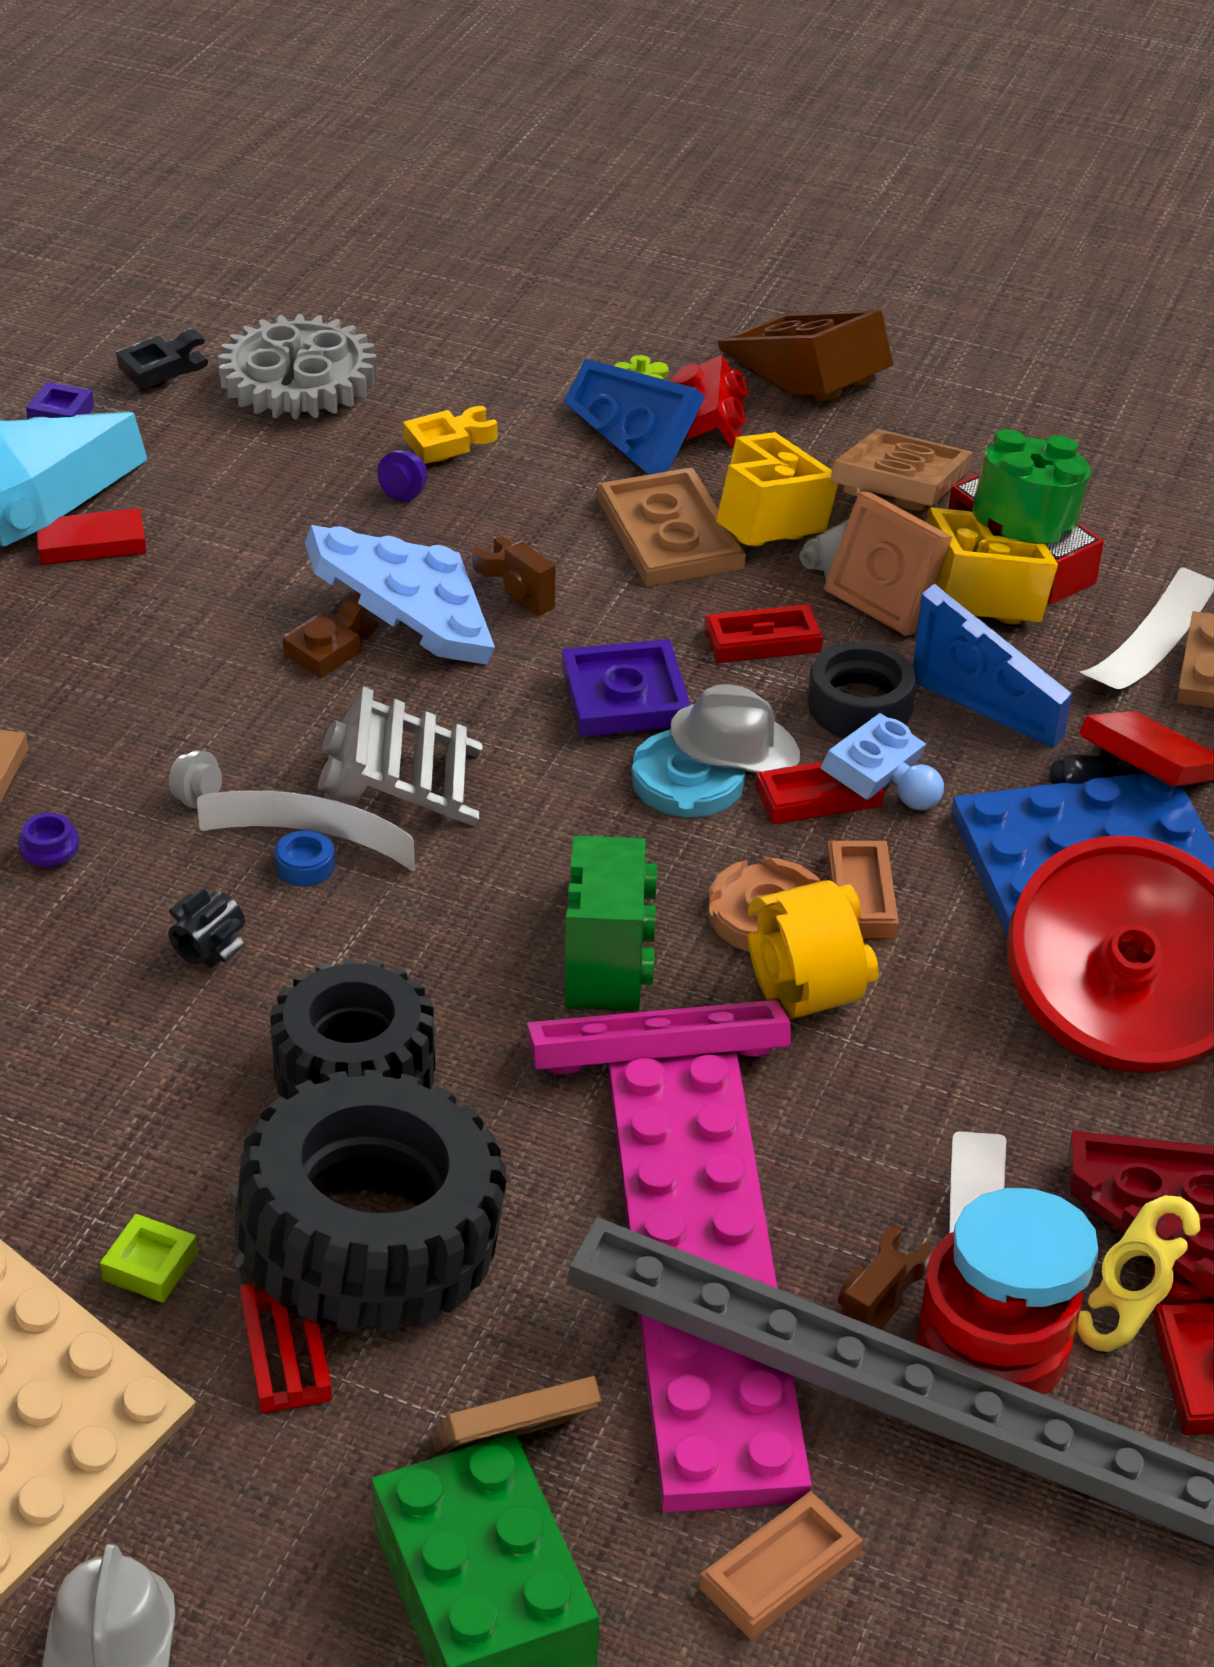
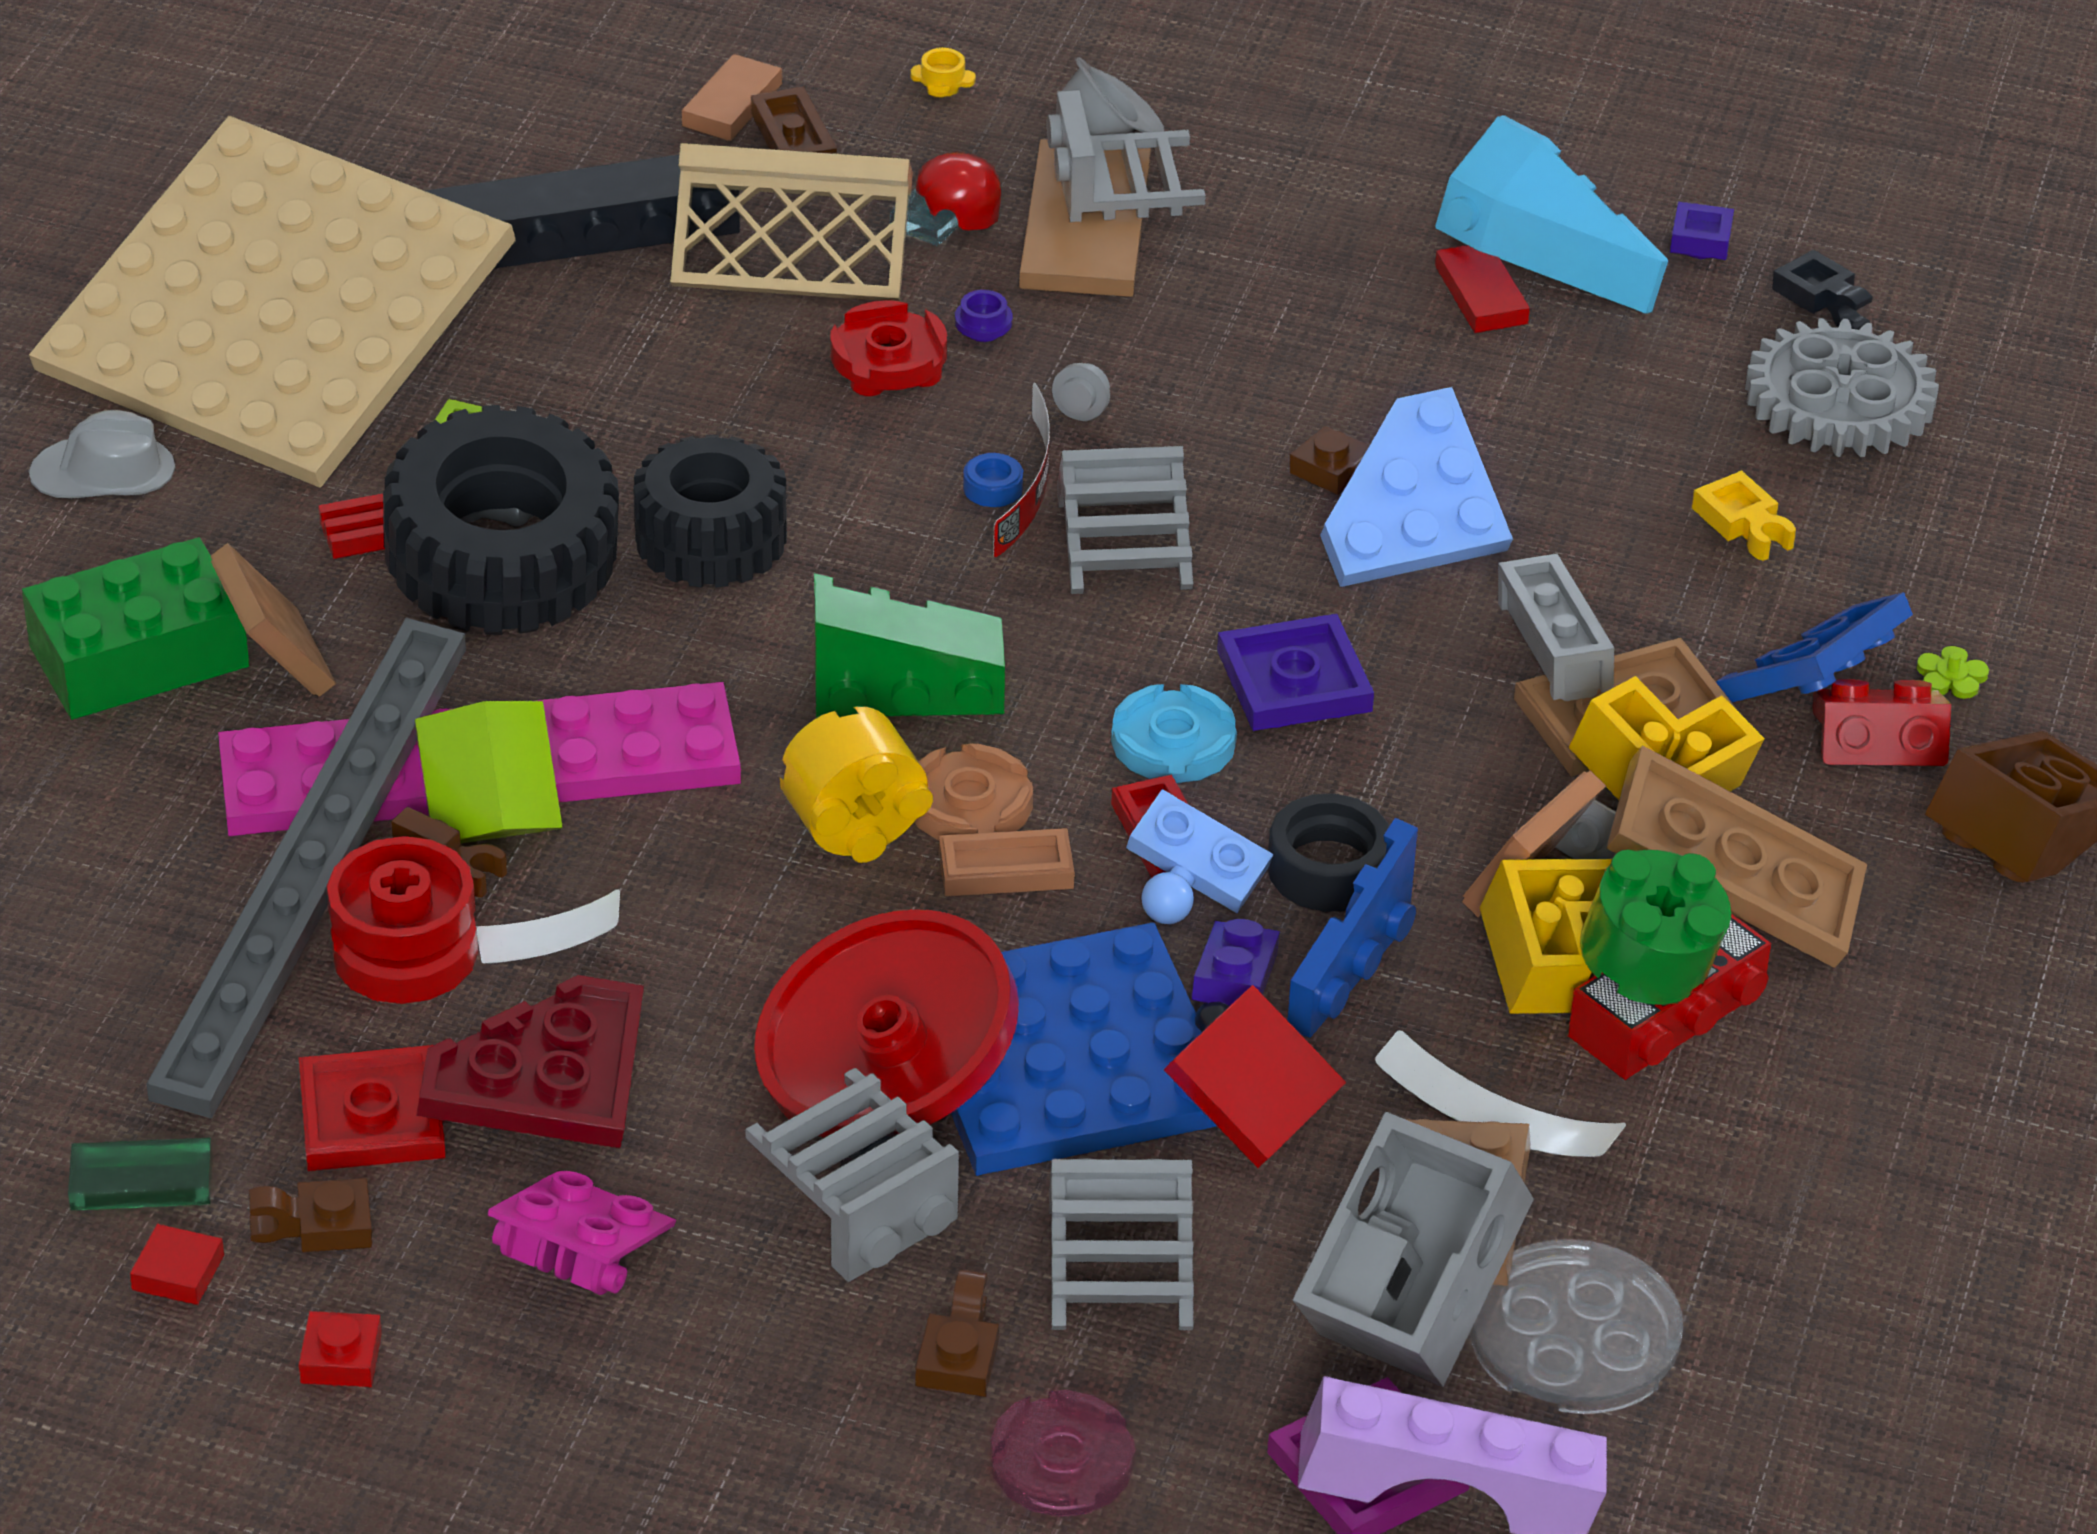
camera: 85 degrees right, 0 degrees up
(61, 932) = (911, 361): none -> red plate
(206, 927) = (860, 414): black gear -> none
(402, 475) = (1645, 483): dark purple plate -> none
(525, 573) = (1471, 583): reddish brown plate -> none
(571, 1043) = (750, 702): dark pink plate -> none
(606, 525) = (1557, 626): none -> light grey container
(733, 730) = (1221, 754): light grey piece -> none
(763, 633) = (1445, 816): red tile -> none
(780, 1565) = (158, 811): nougat tile -> none
(785, 1229) = (489, 769): none -> lime slope
(1011, 750) = (1233, 960): none -> dark purple plate
(1025, 1246) = (423, 882): medium azure tile -> none
(1138, 1240) = (450, 1010): light yellow piece -> none

